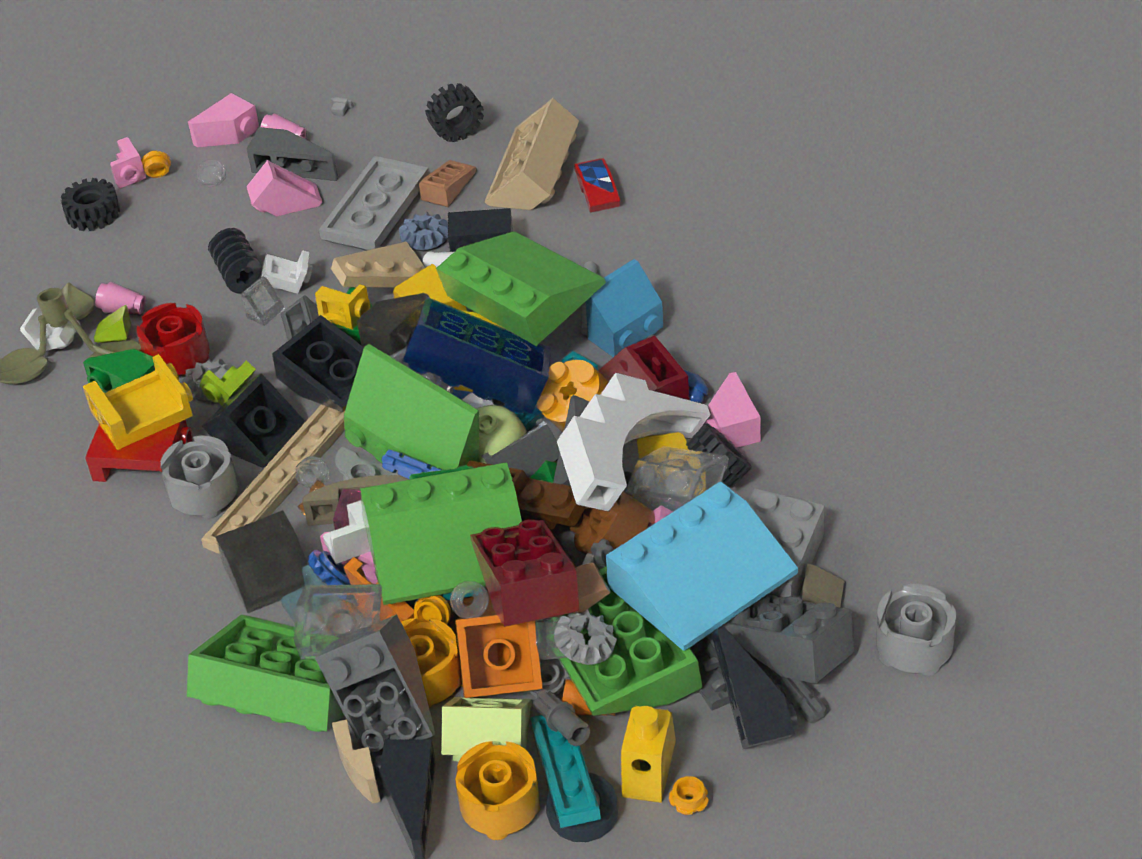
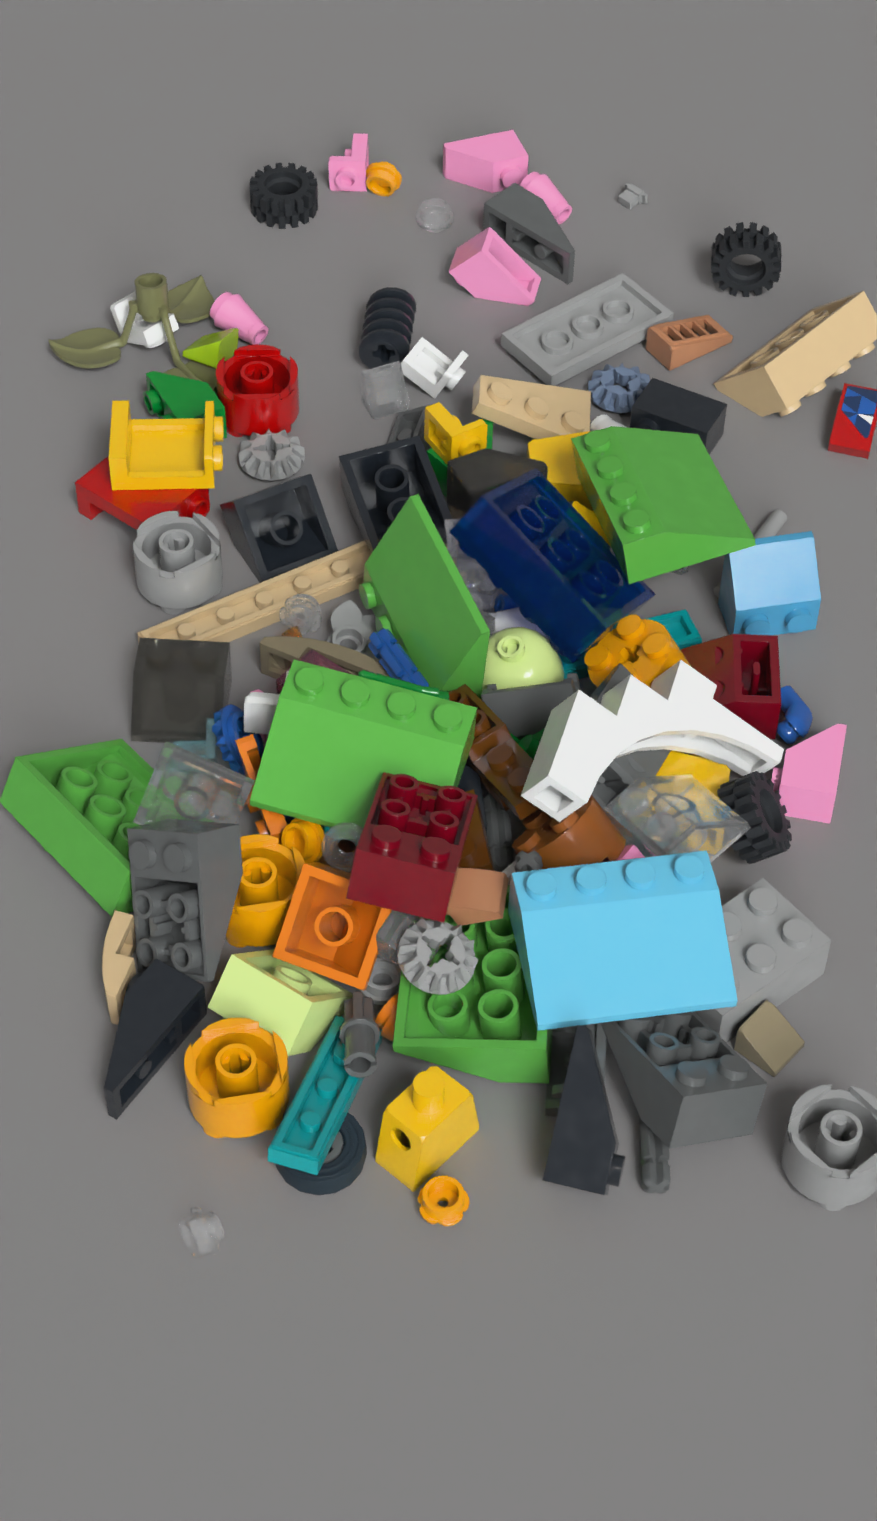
camera: 25 degrees right, 5 degrees up
(222, 389) = (284, 468): lime bracket -> none

